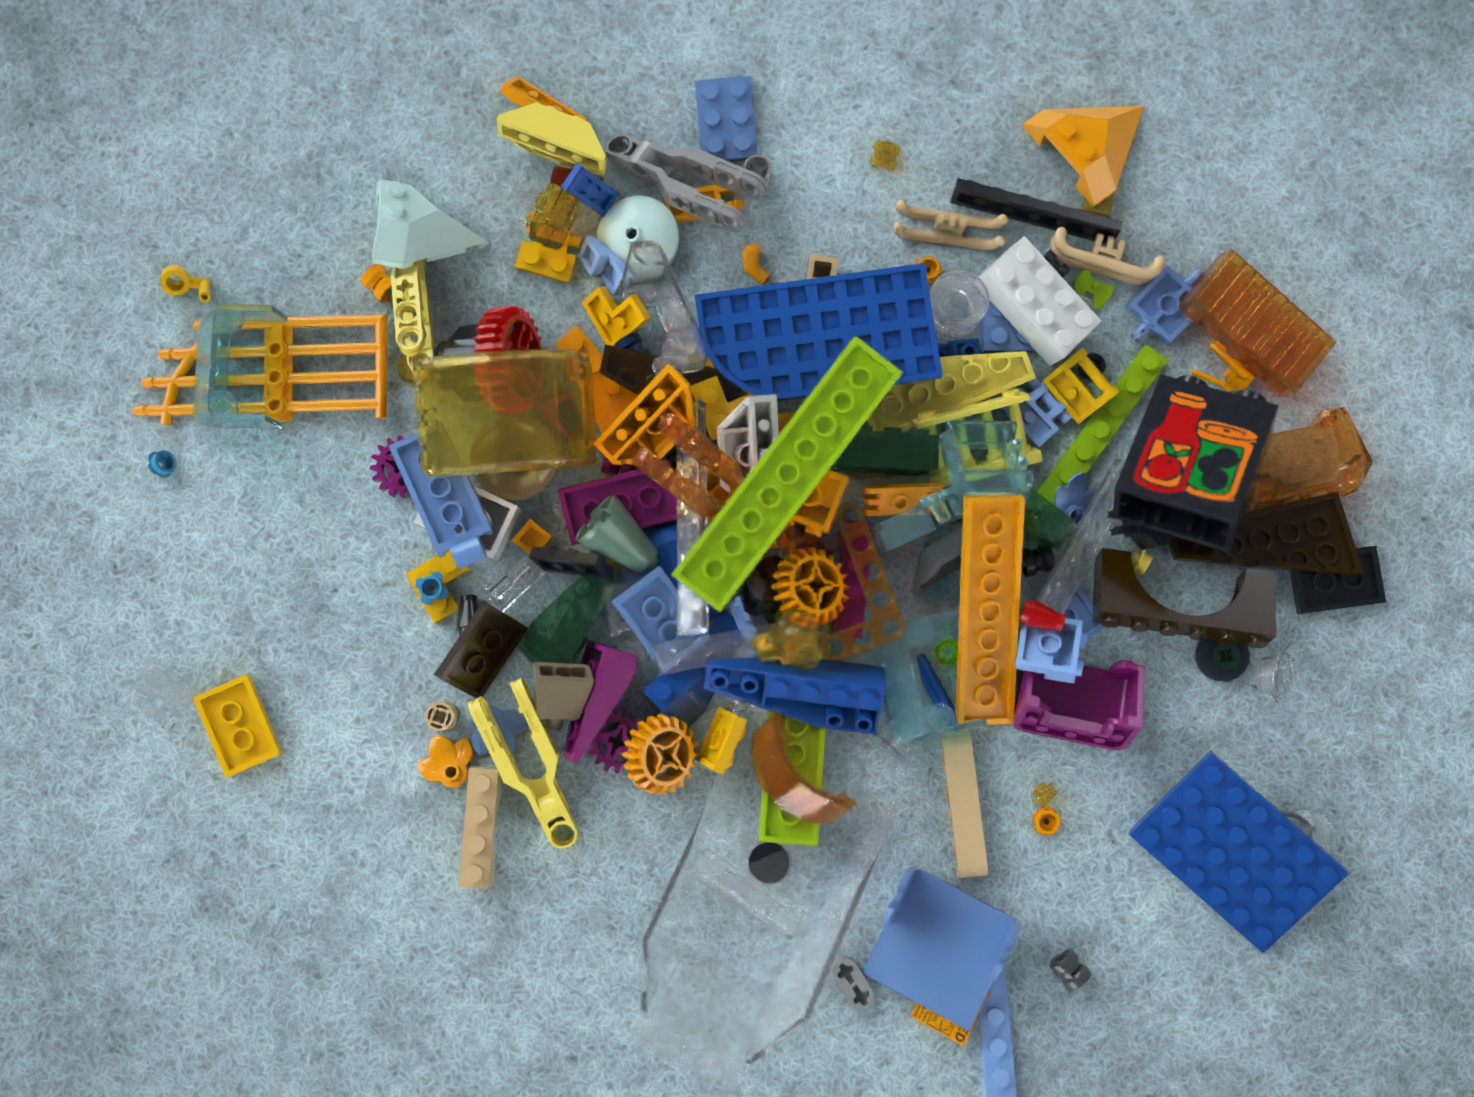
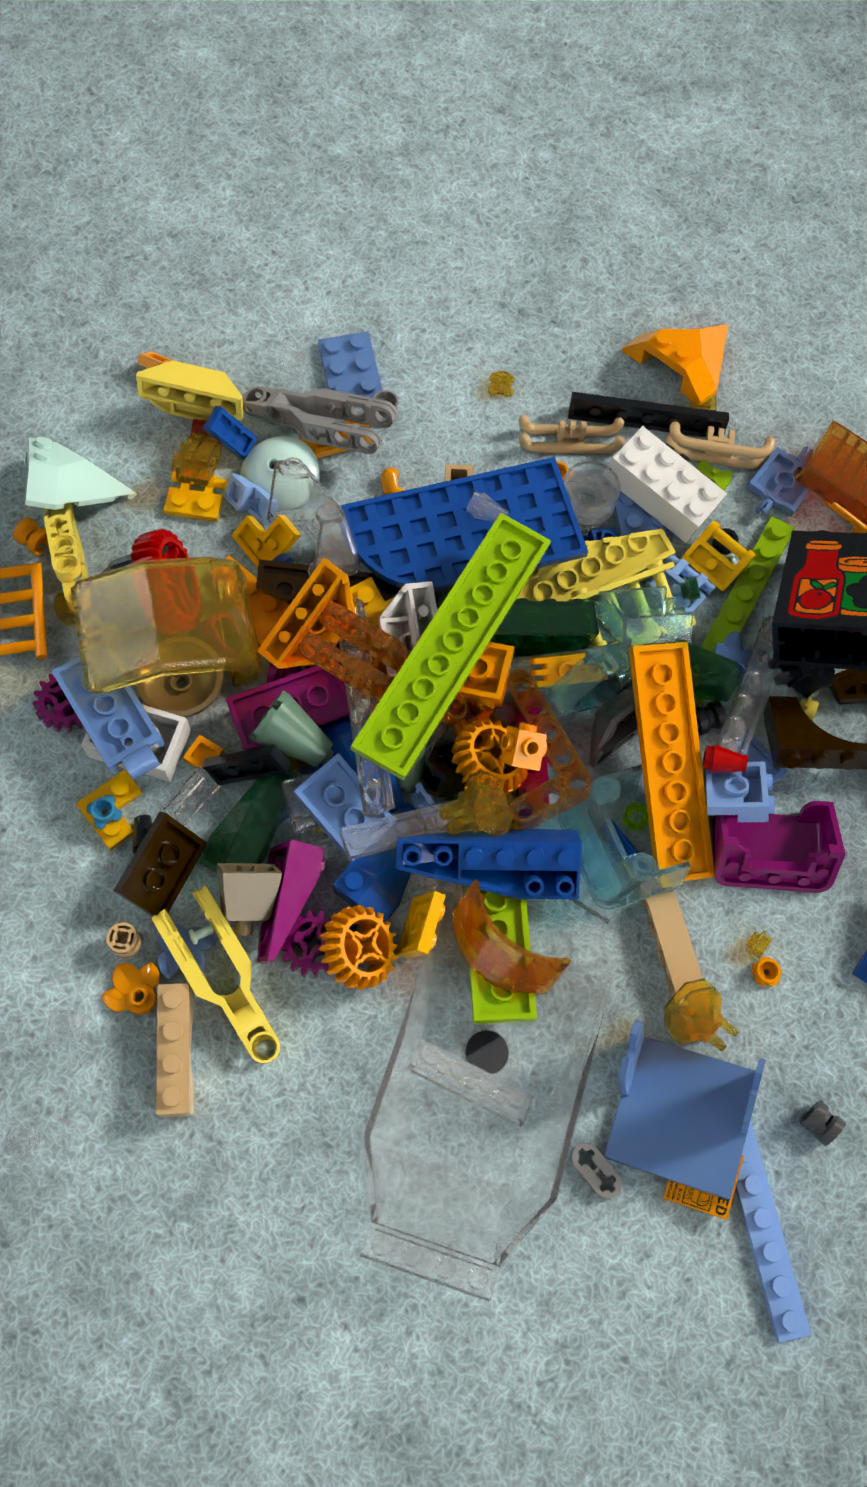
camera: 10 degrees left, 15 degrees down
(513, 719) = (201, 933): none -> light aqua piece
(842, 319) = (484, 507): none -> clear cone
(842, 588) = (523, 747): none -> light orange brick
(970, 865) = (697, 1014): none -> clear yellow hinge
(1043, 421) = (690, 589): none -> clear green plate

